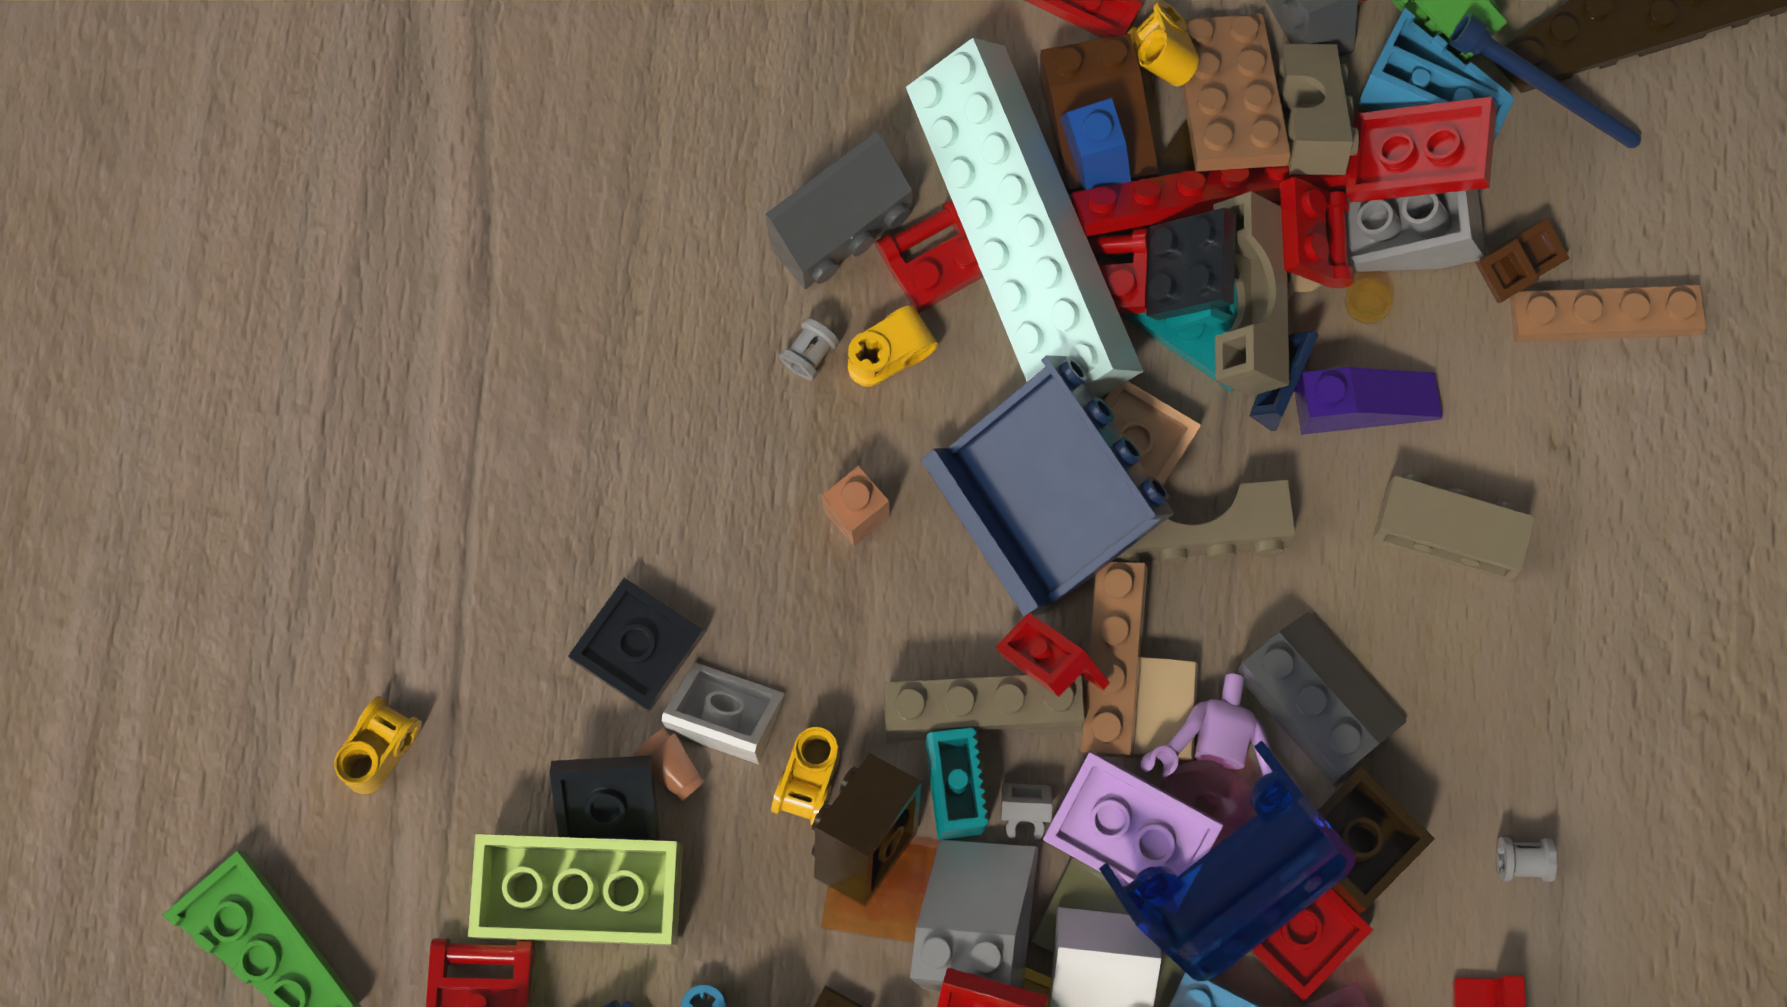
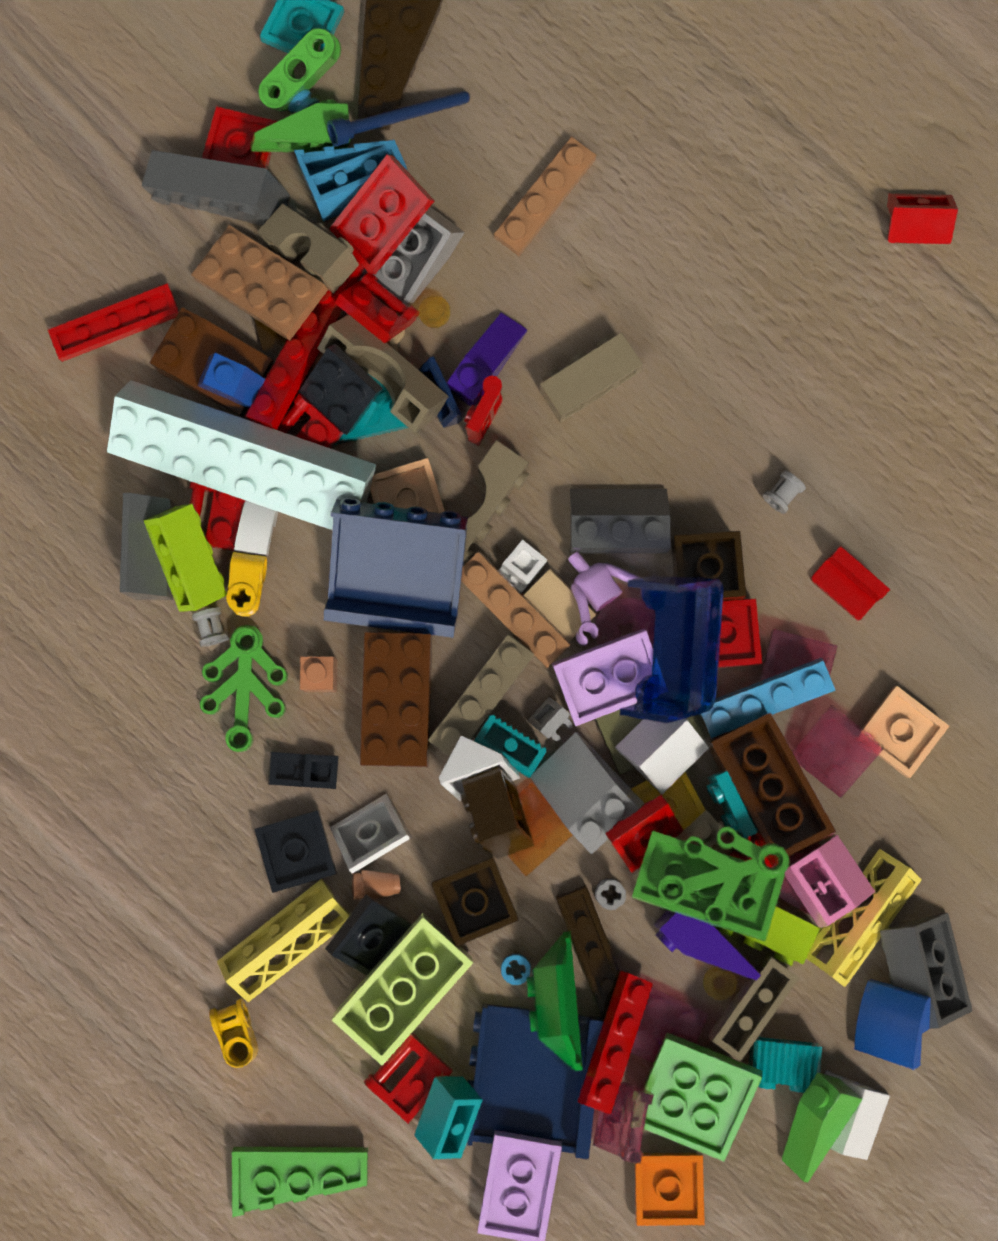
camera: 50 degrees left, 10 degrees up
(517, 701) = (279, 937): none -> light yellow fence
(734, 579) = (303, 770): none -> black slope
(744, 890) = (475, 901): none -> dark brown brick
(777, 435) = (243, 682): none -> bright green plant
(807, 779) = (443, 820): yellow piece -> none
(862, 257) = (185, 557): none -> lime brick
(899, 614) = (396, 700): none -> reddish brown brick
(902, 743) = (470, 760): none -> white slope
(958, 308) = (255, 529): none -> white slope
(1048, 656) = (485, 645): red panel -> none
(1165, 45) = (203, 293): yellow piece -> none
(1173, 630) = (522, 565): none -> white slope
(1310, 441) = (480, 417): none -> red plate
(1522, 260) = (480, 214): reddish brown slope -> none

